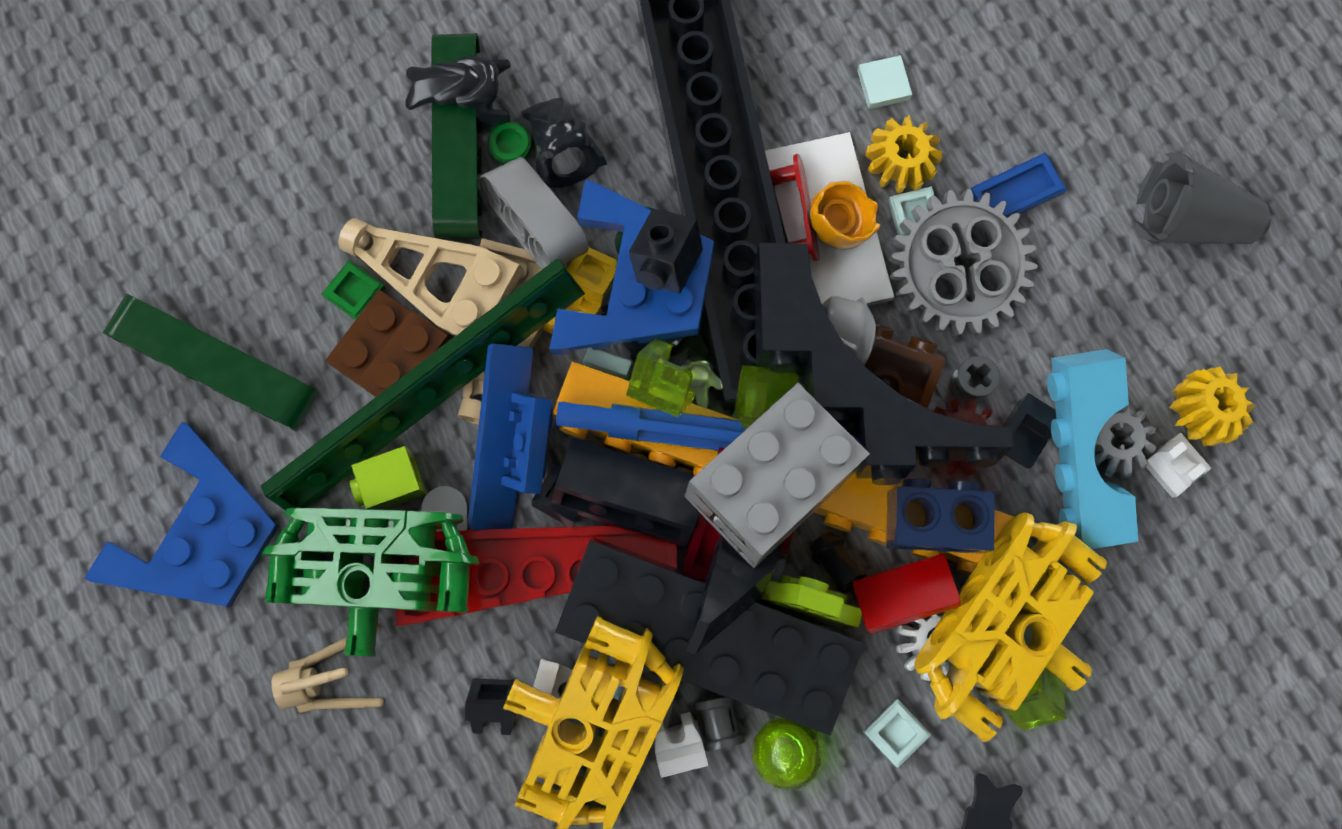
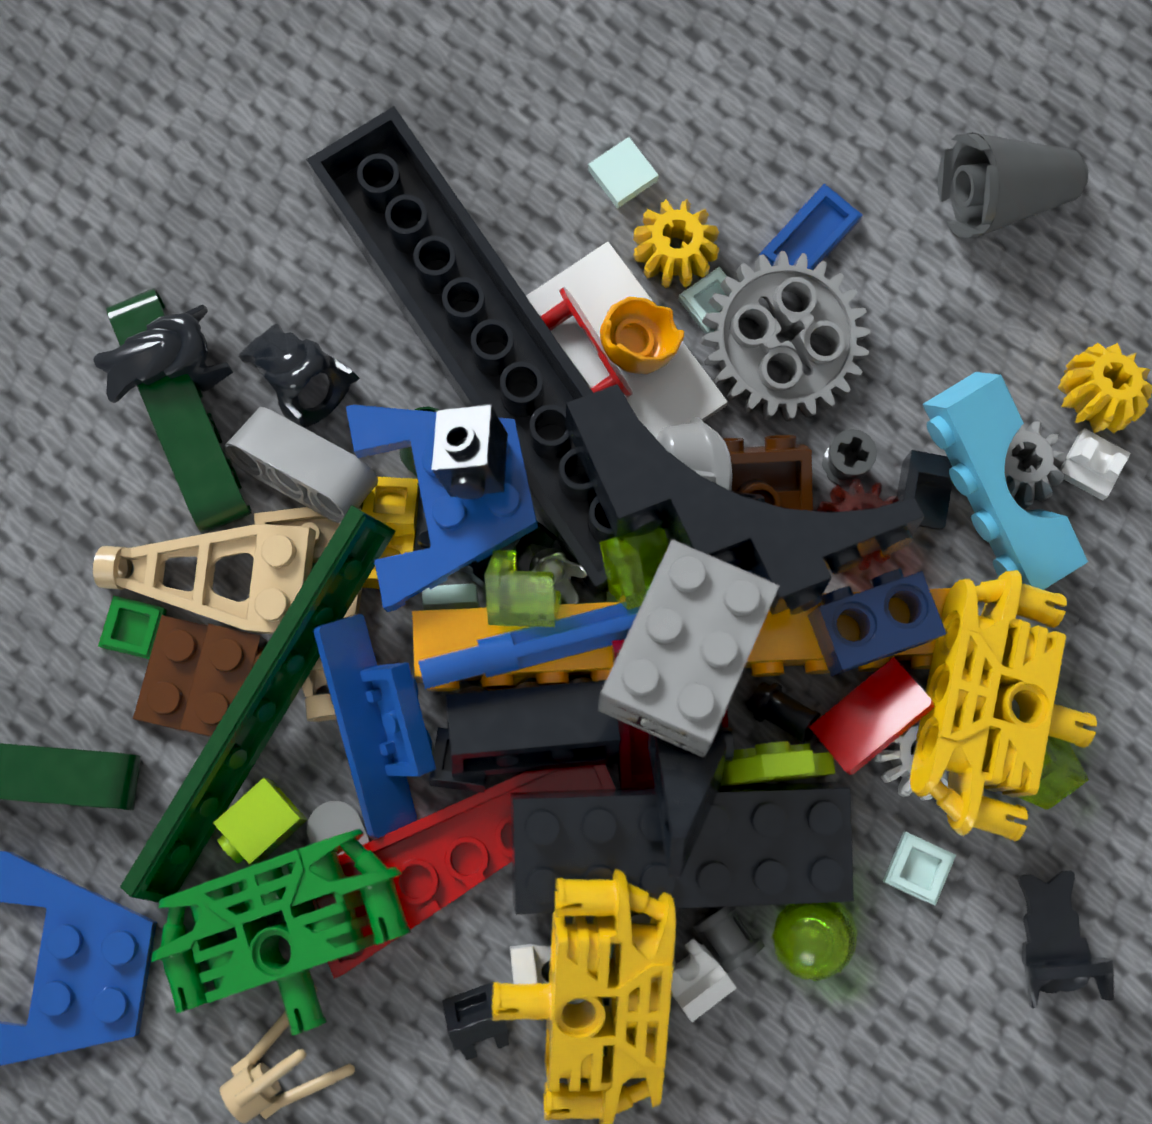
camera: 25 degrees left, 0 degrees up
(509, 142) = (240, 395): green tile -> none

